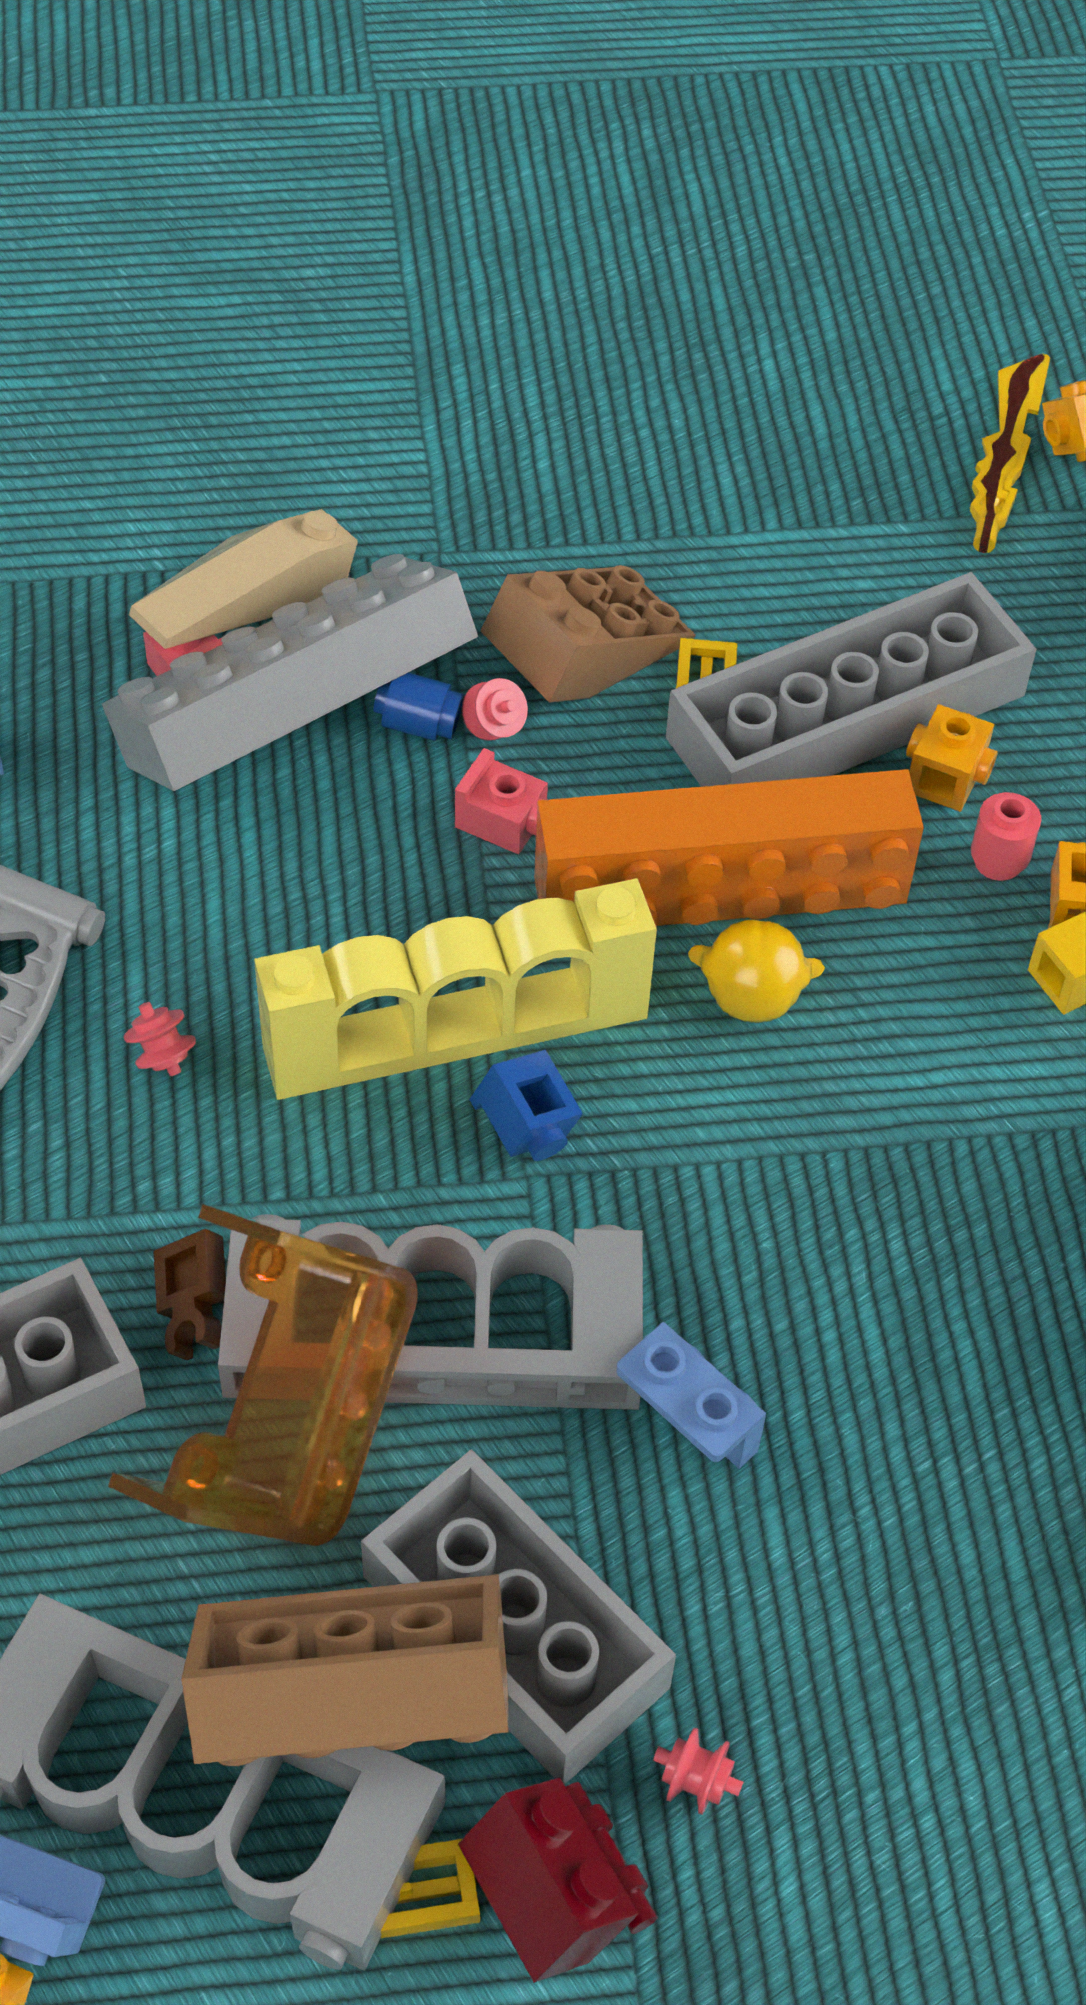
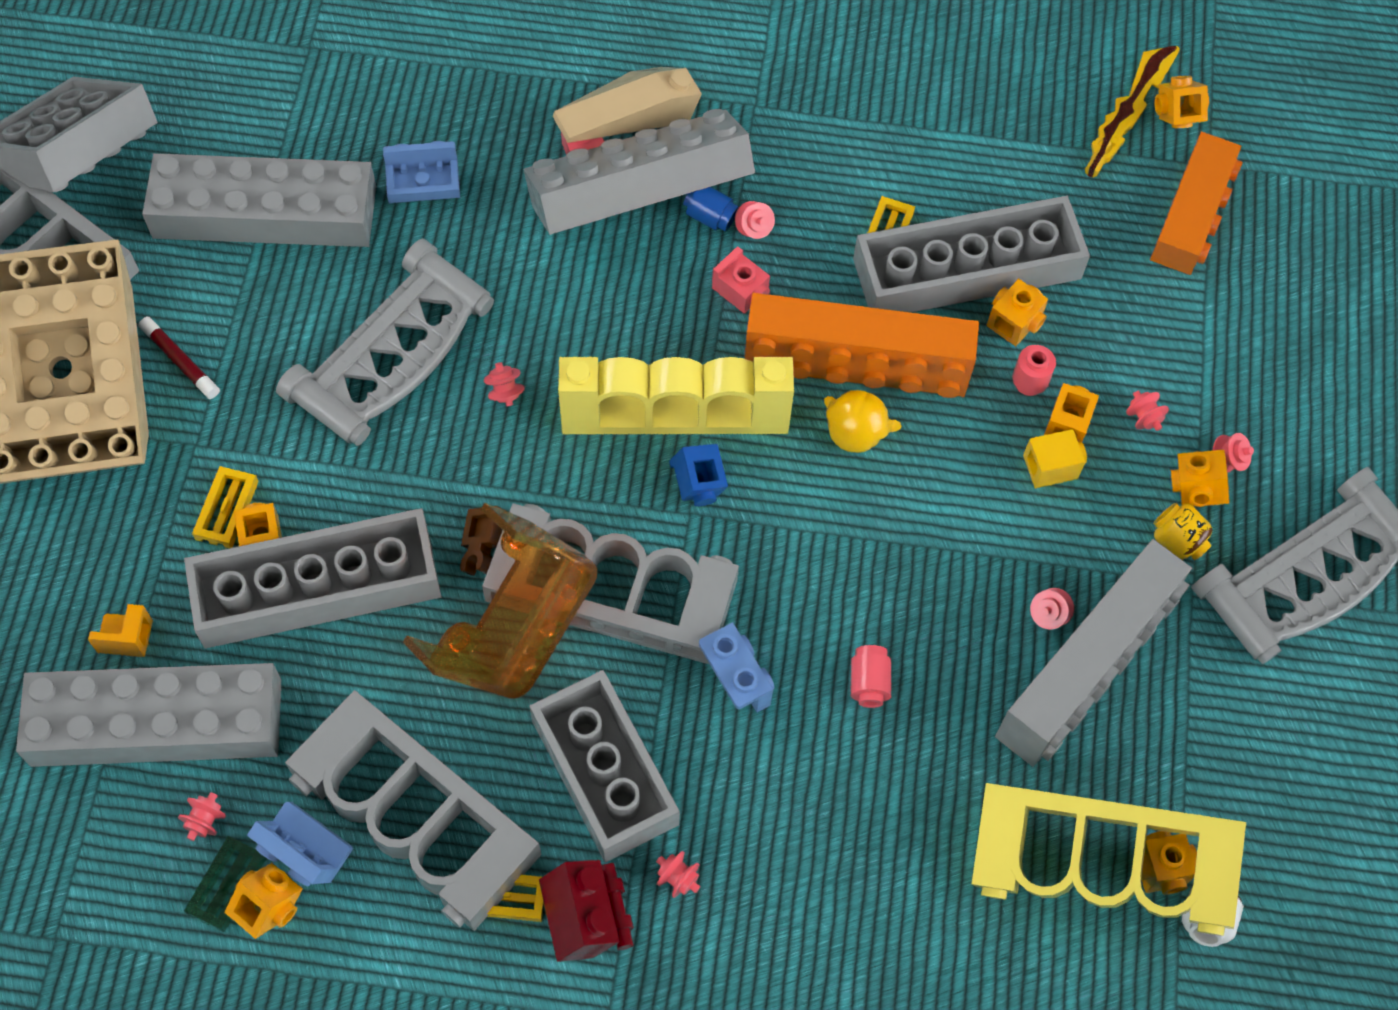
camera: 15 degrees right, 10 degrees up
(346, 1670) = (500, 774): medium nougat slope -> none
(581, 628) = (824, 177): medium nougat slope -> none
(912, 1359) = (871, 676): none -> coral brick

